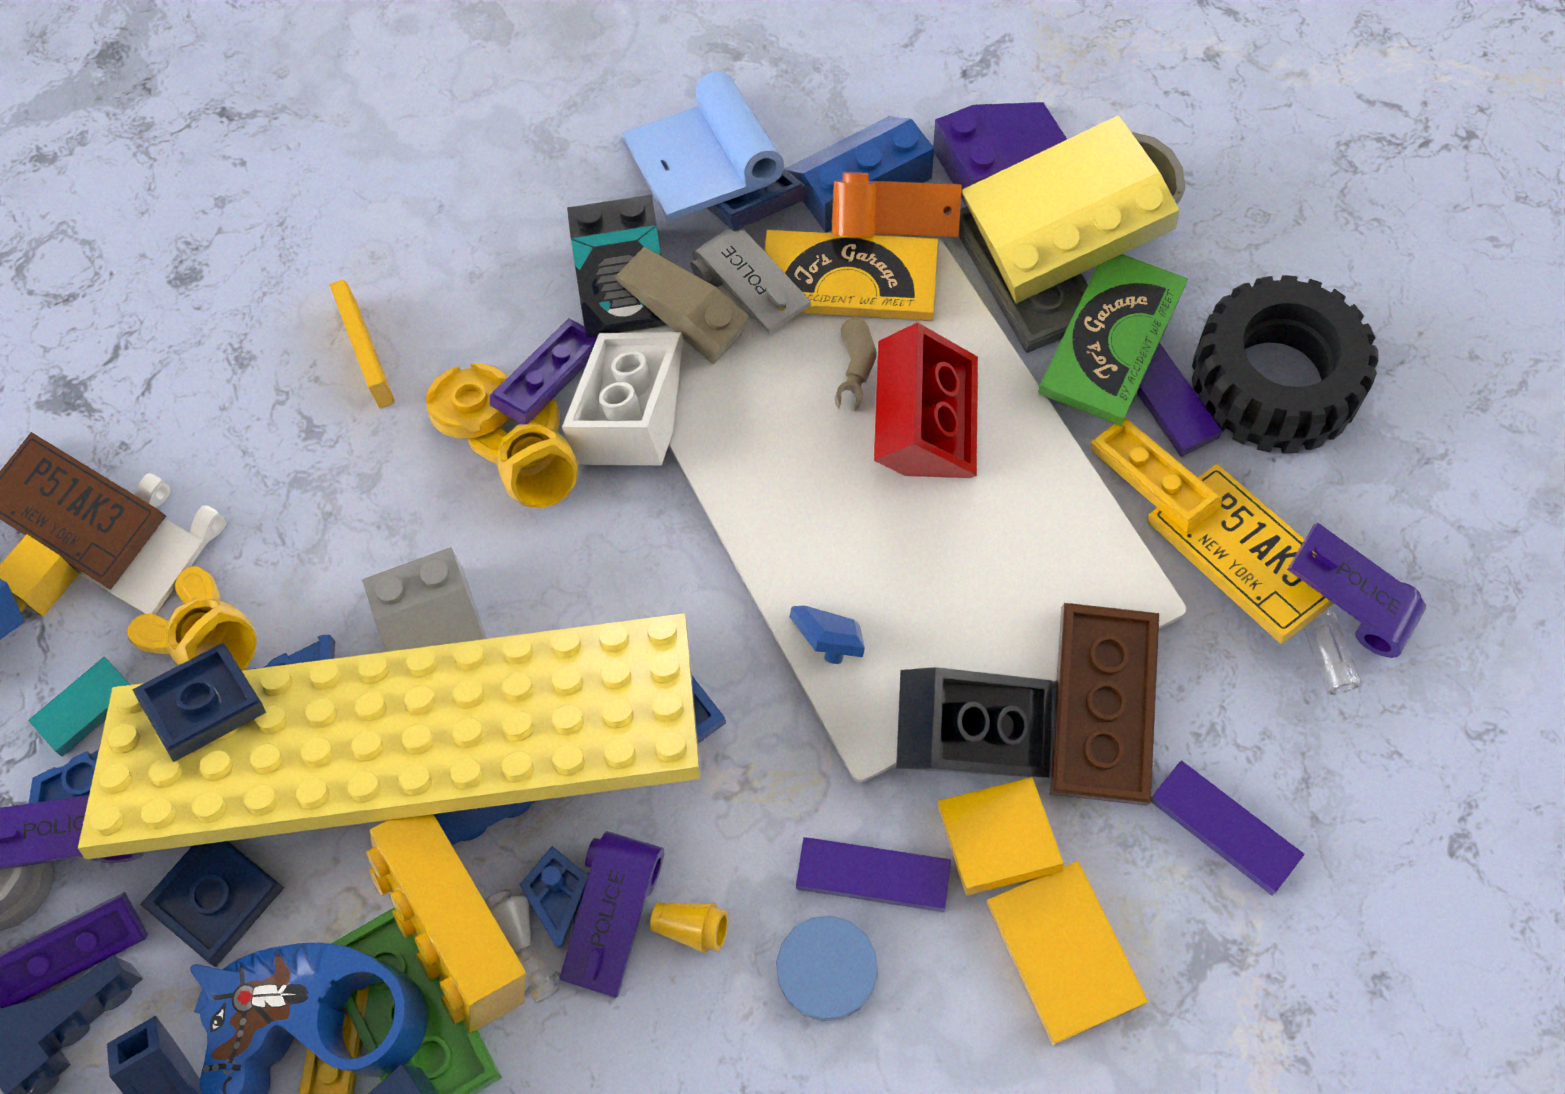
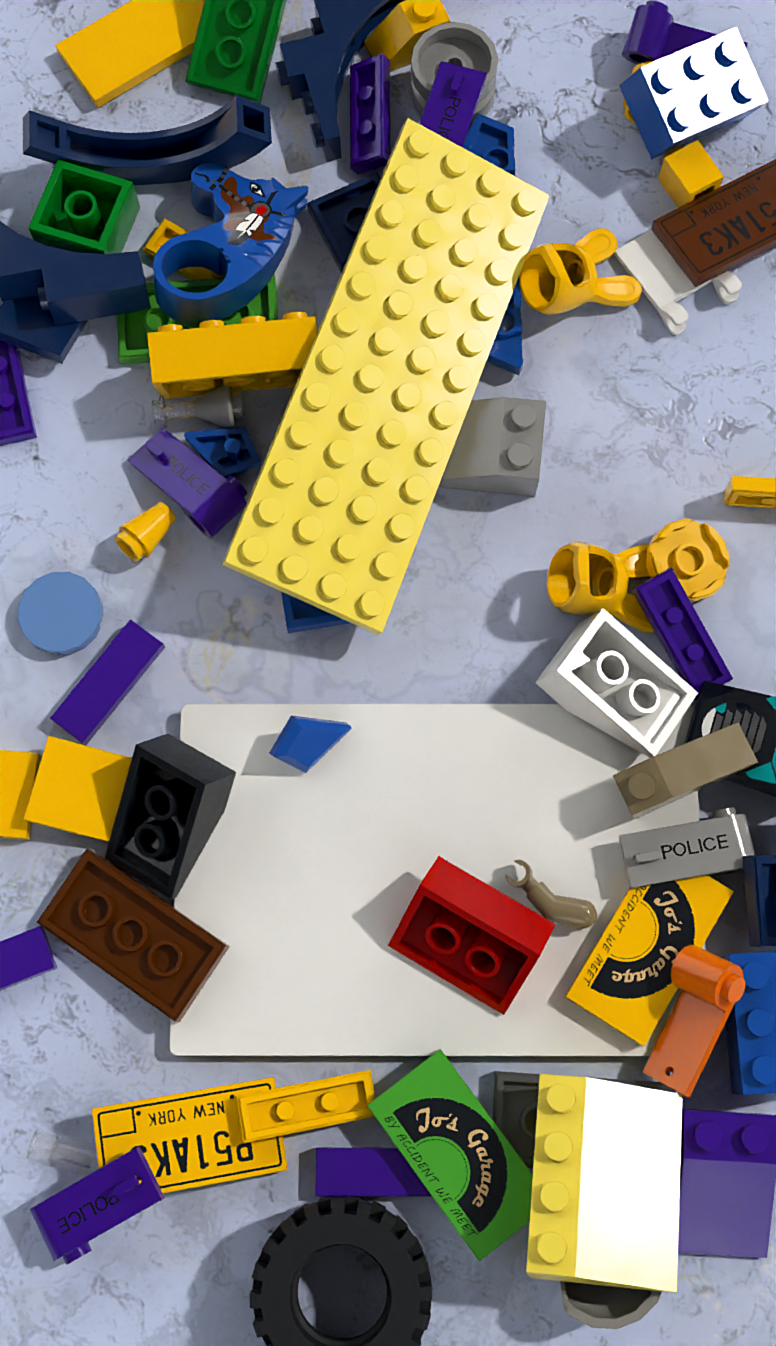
camera: 115 degrees right, 10 degrees up
(78, 707) = (560, 179): teal tile -> none
(199, 701) = (492, 240): dark blue tile -> none

